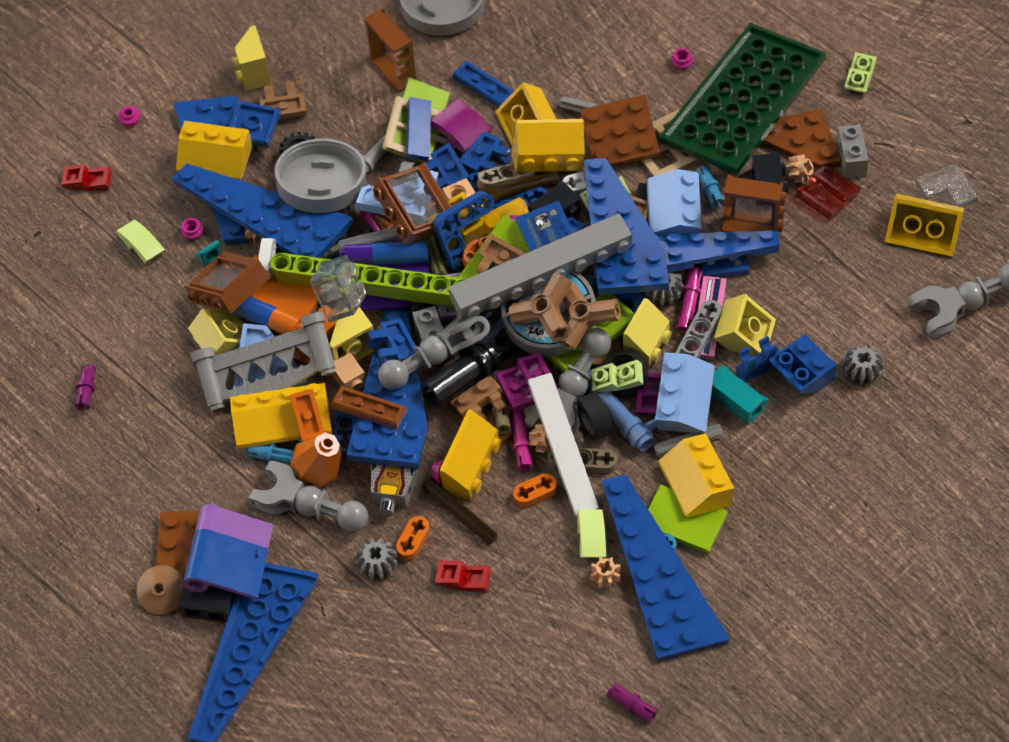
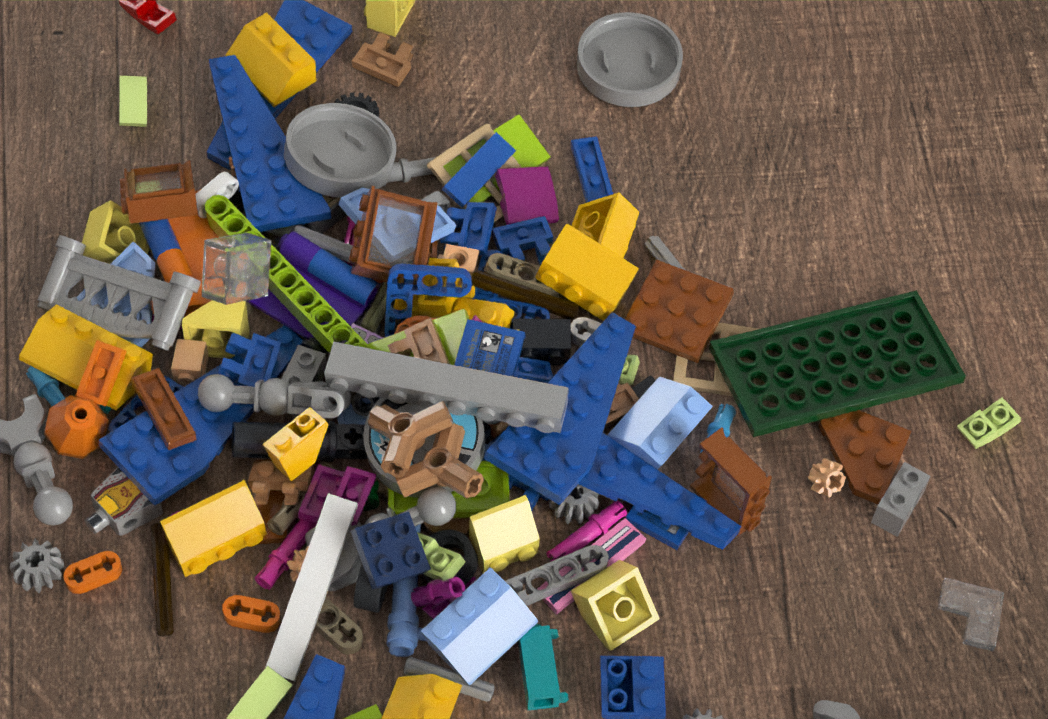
camera: 30 degrees right, 0 degrees up
(189, 224) = (190, 121): dark pink plate -> none
(209, 253) = (182, 154): teal slope -> none
(258, 119) = (338, 60): blue tile -> none
(390, 49) = (522, 72): dark orange window -> none
(462, 577) = (101, 648): red slope -> none
(479, 365) = (297, 444): none -> yellow slope
(596, 385) = (390, 550): none -> dark blue plate
(642, 391) = (437, 592): none -> magenta pin
(682, 58) = (815, 274): dark pink plate -> none
(757, 365) = (582, 652): blue plate -> none
(769, 169) = (787, 463): black brick -> none
(827, 192) = (838, 524): clear red slope -> none
(924, 225) = (908, 633): yellow slope -> none

